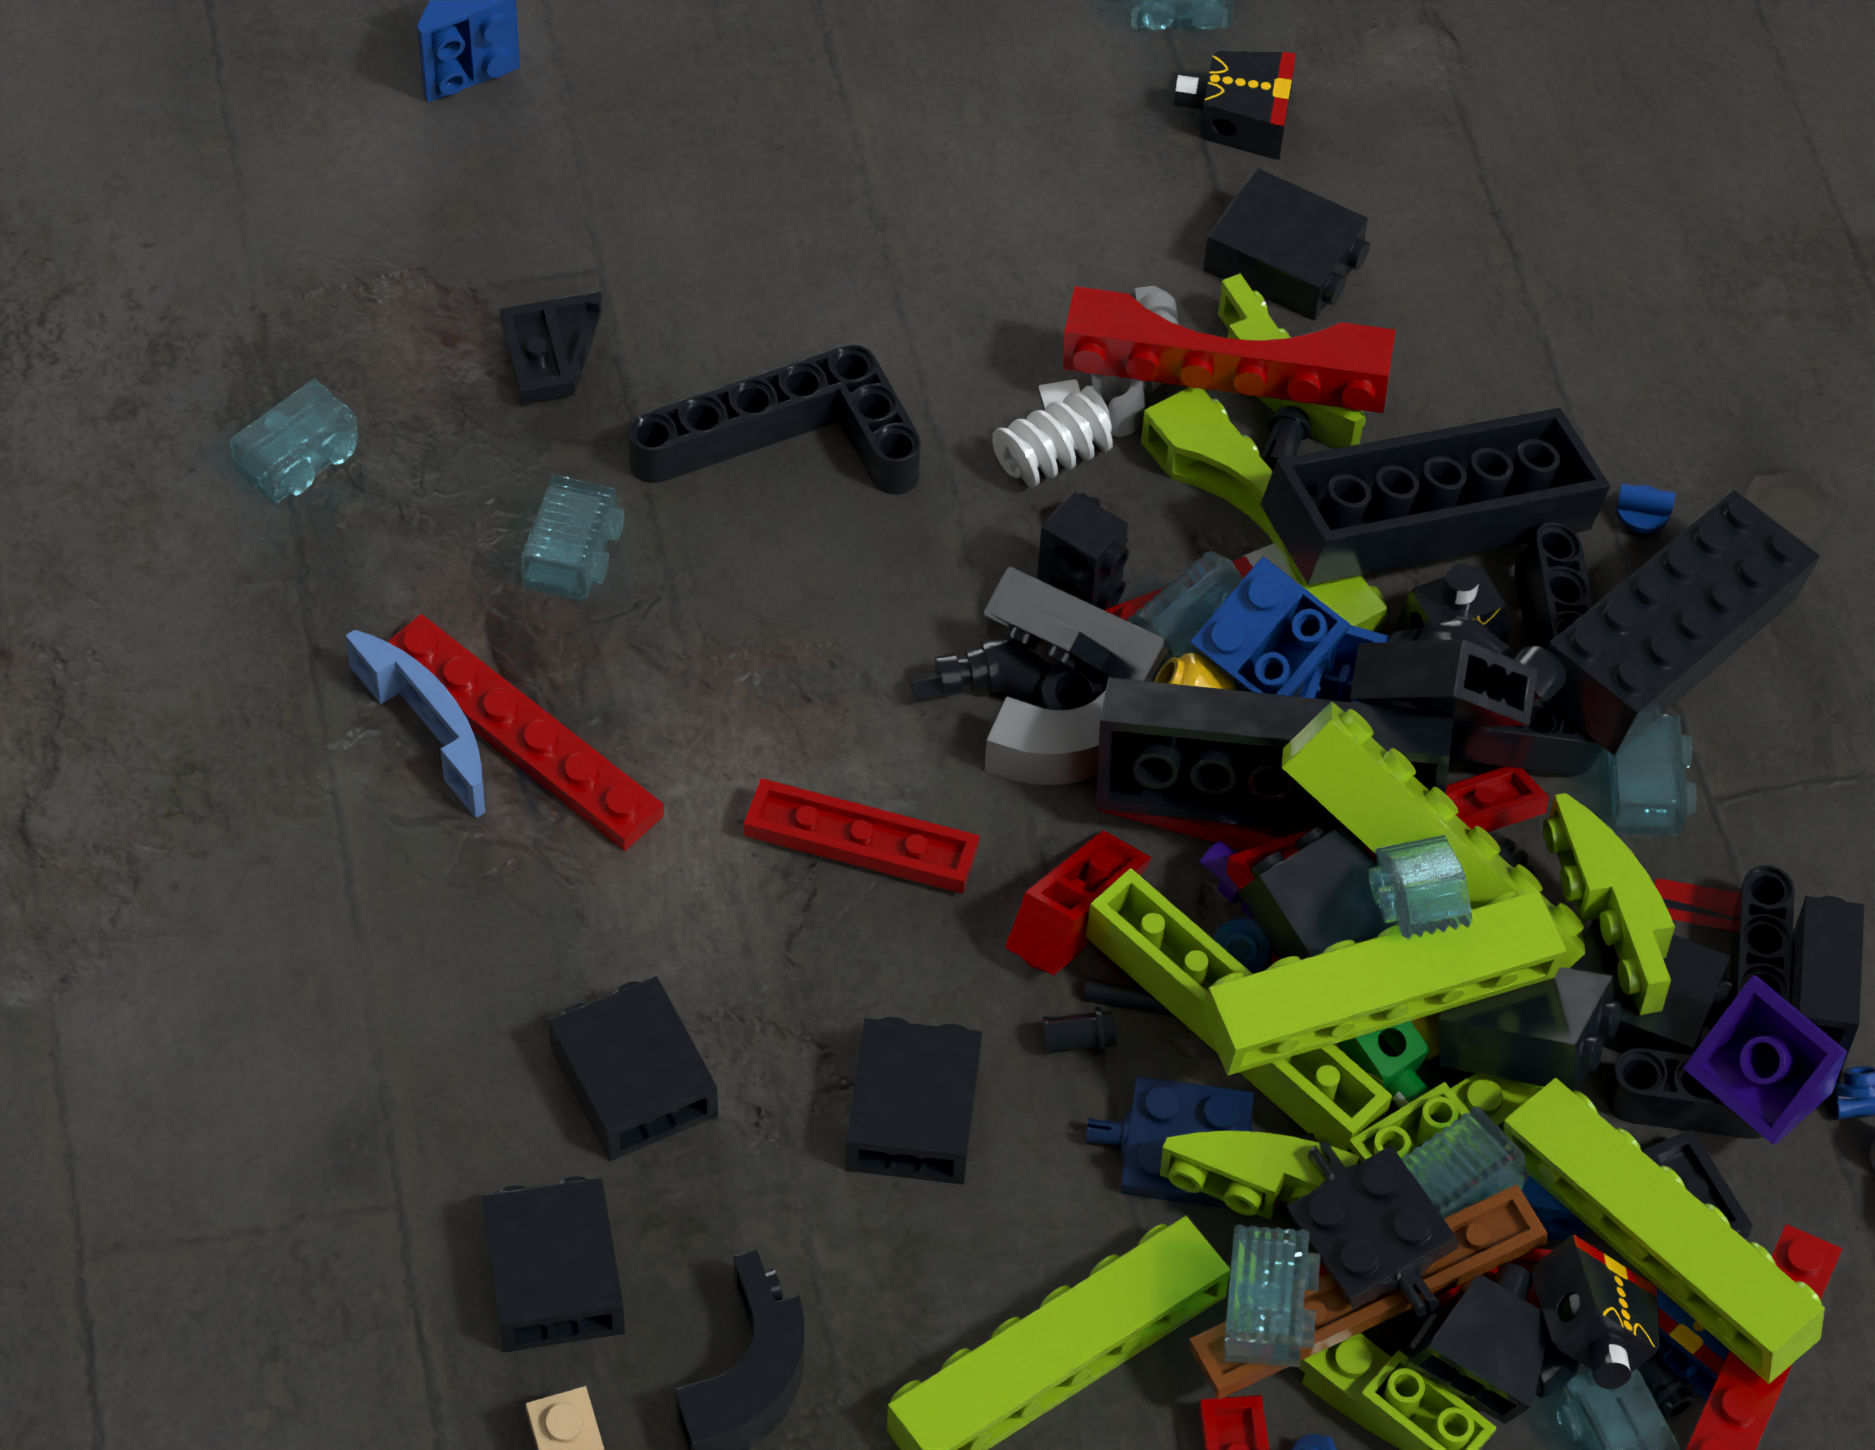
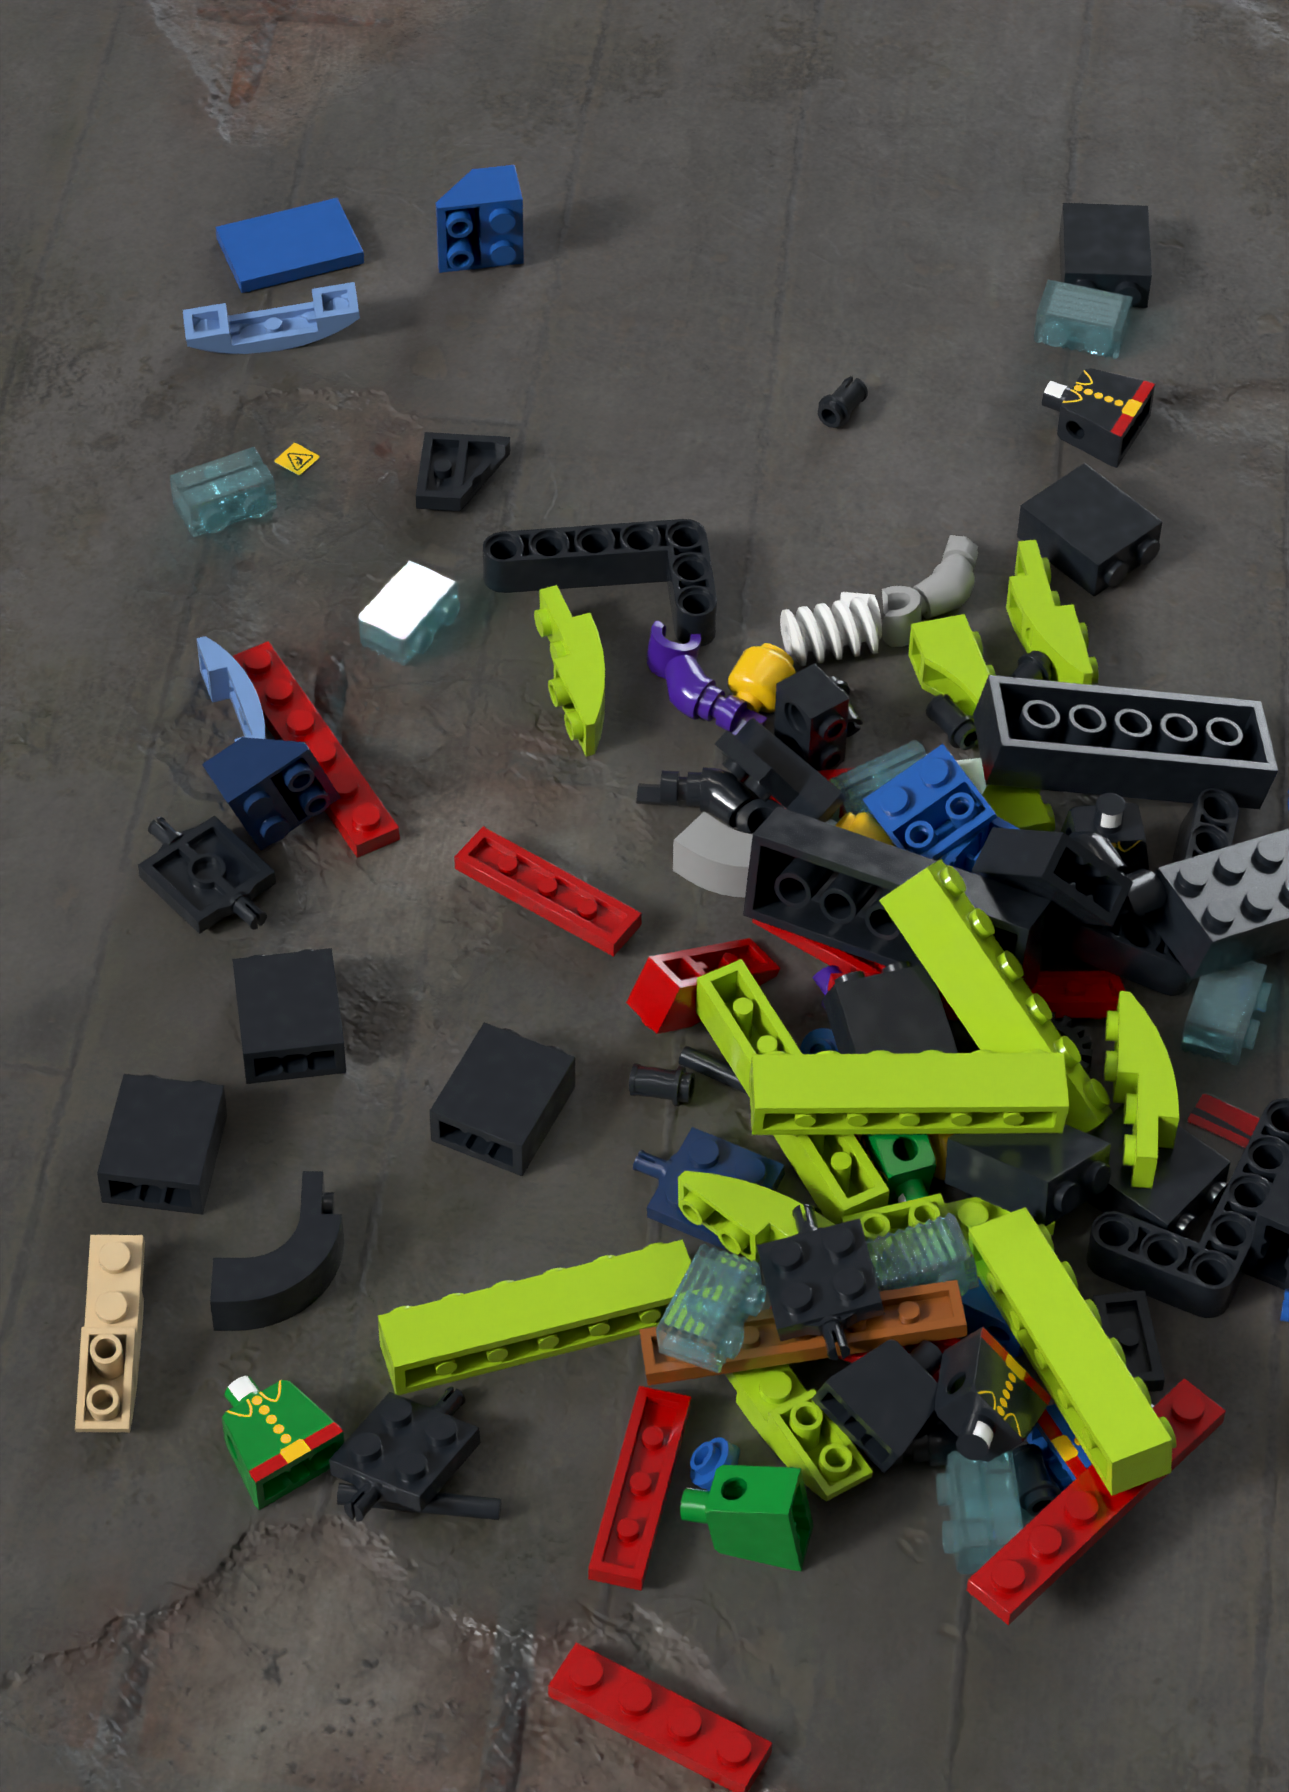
camera: 20 degrees right, 5 degrees down
(241, 110) = (289, 245): none -> blue tile
(268, 219) = (275, 328): none -> medium blue slope
(356, 375) = (297, 459): none -> yellow sticker
(466, 920) = (206, 874): none -> black plate
(510, 797) = (271, 786): none -> dark blue slope
(795, 559) = (577, 667): none -> lime slope
(921, 545) = (690, 687): none -> dark purple piece
(950, 164) = (836, 408): none -> black pin
(1000, 516) = (758, 673): none -> yellow head
(1234, 516) = (953, 722): none -> black pin
(1330, 367) = (1074, 623): red arch -> none
(1421, 886) = (961, 1023): clear light blue brick -> none
(1767, 1061) = (1219, 1247): dark purple slope -> none

